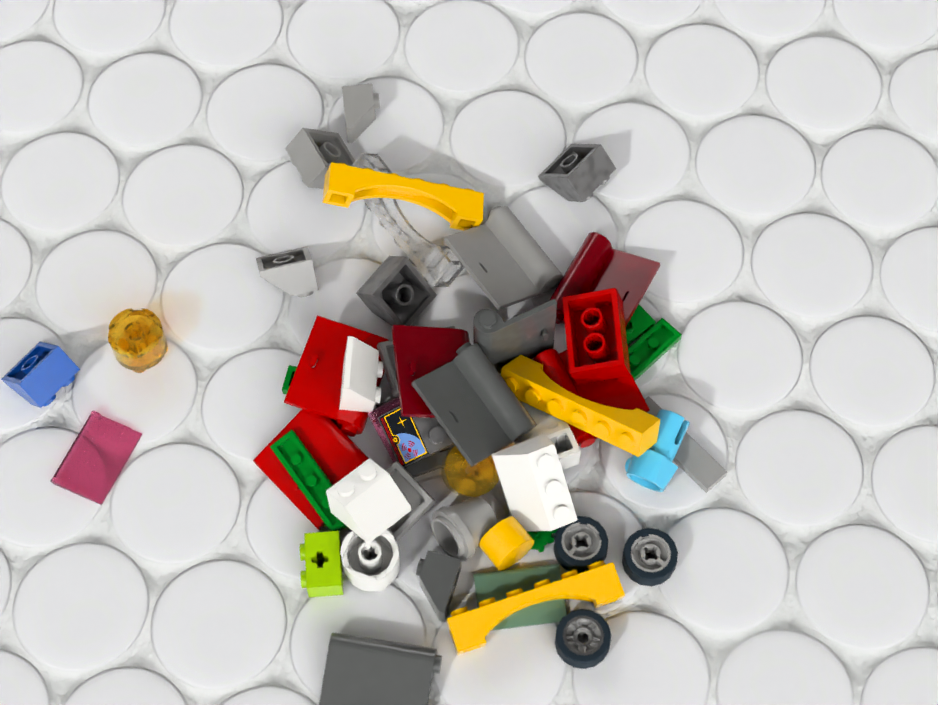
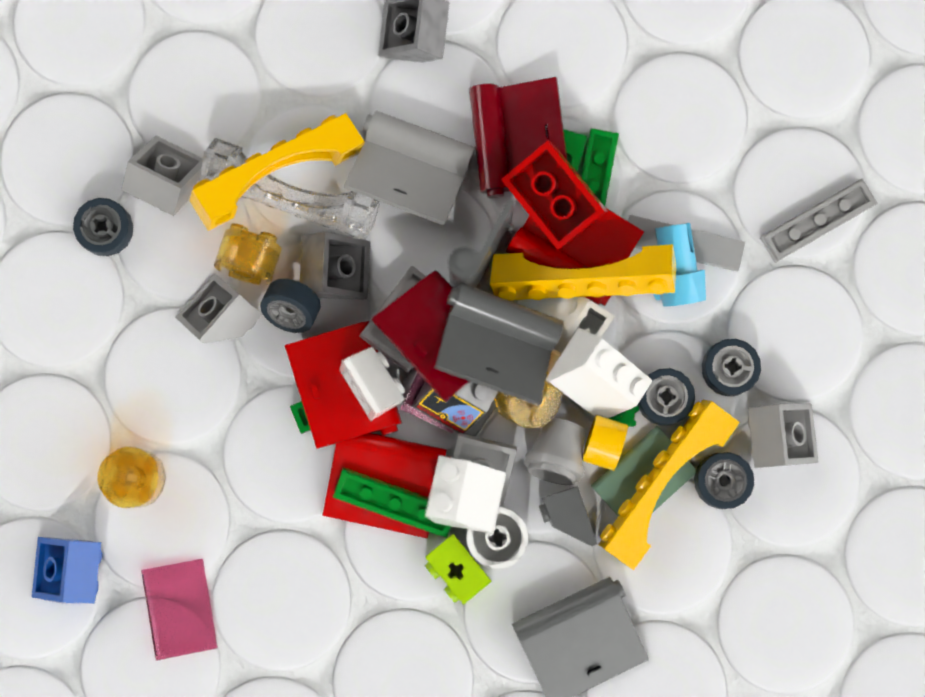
camera: 35 degrees left, 20 degrees up
(255, 178) = (117, 220): none -> wheel
(339, 243) = (248, 255): none -> clear yellow brick
(343, 295) = (290, 305): none -> black wheel
(359, 109) = (160, 98): light grey slope -> none
(656, 634) = (782, 435): none -> light grey slope
(799, 495) = (818, 220): none -> light grey tile

